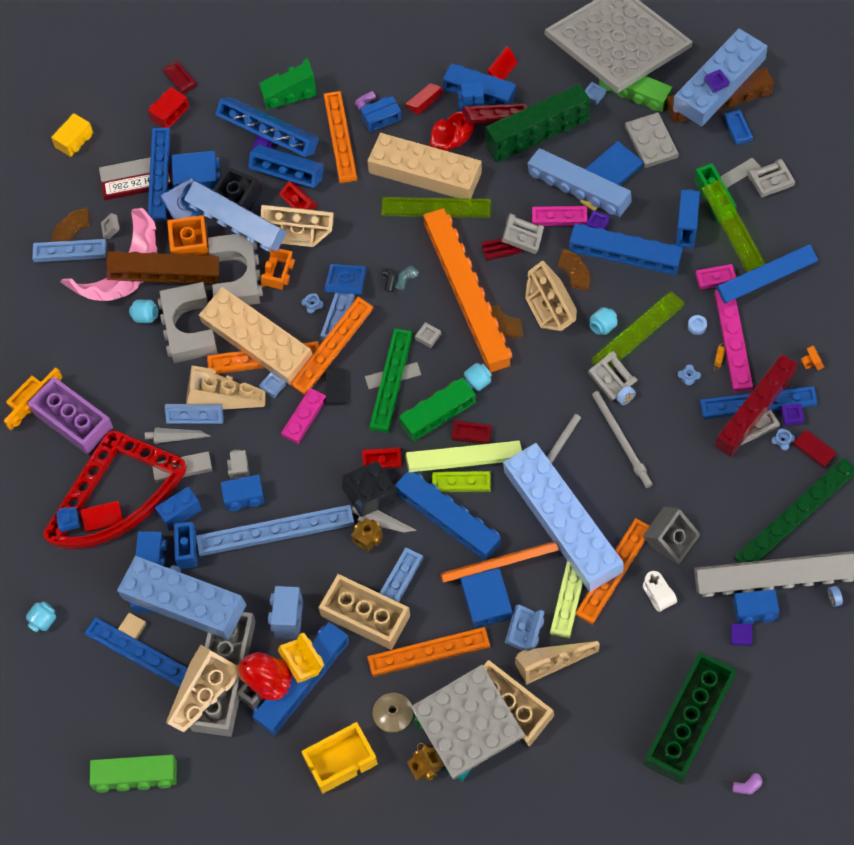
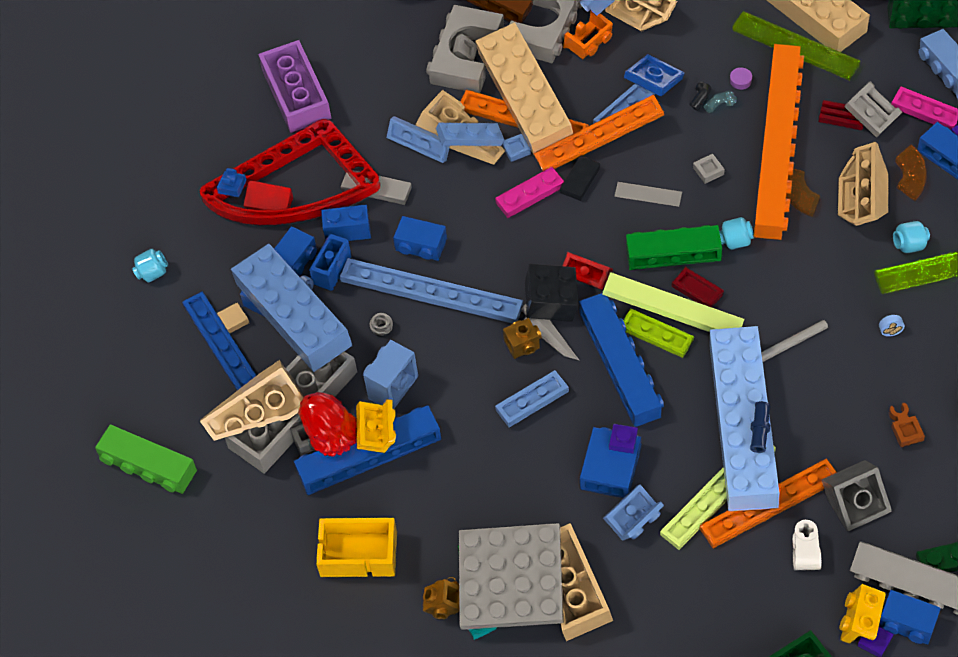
camera: 30 degrees right, 5 degrees down
(23, 395) = (250, 59): light orange bracket -> none
(143, 311) = (428, 19): medium azure head -> none
(167, 435) = (380, 149): light grey bar -> none
(187, 323) = (464, 48): none -> light grey plate
(234, 392) = (470, 134): none -> medium blue plate
(238, 465) = (432, 208): light grey brick -> none
(252, 570) = (381, 318): none -> light grey plate
(312, 298) = (605, 79): medium blue plate -> none
(364, 611) = (472, 414): tan brick -> none
(391, 380) = (642, 197): green tile -> none
(395, 721) = (438, 541): dark tan dish -> none
(410, 252) = (740, 78): none -> medium lavender tile
(428, 651) = (518, 489): orange tile -> none
(488, 576) = (623, 438): none -> dark purple plate
(498, 561) = (649, 432): orange tile -> none
(546, 660) = (633, 558): tan wedge -> none
(584, 520) = (760, 427): none -> dark blue pin
(607, 379) = (880, 299): light grey plate -> none
(639, 468) = (861, 408): light grey bar -> none
(677, 468) = (905, 428): none -> dark orange plate
(724, 621) = (862, 614): none -> yellow bracket

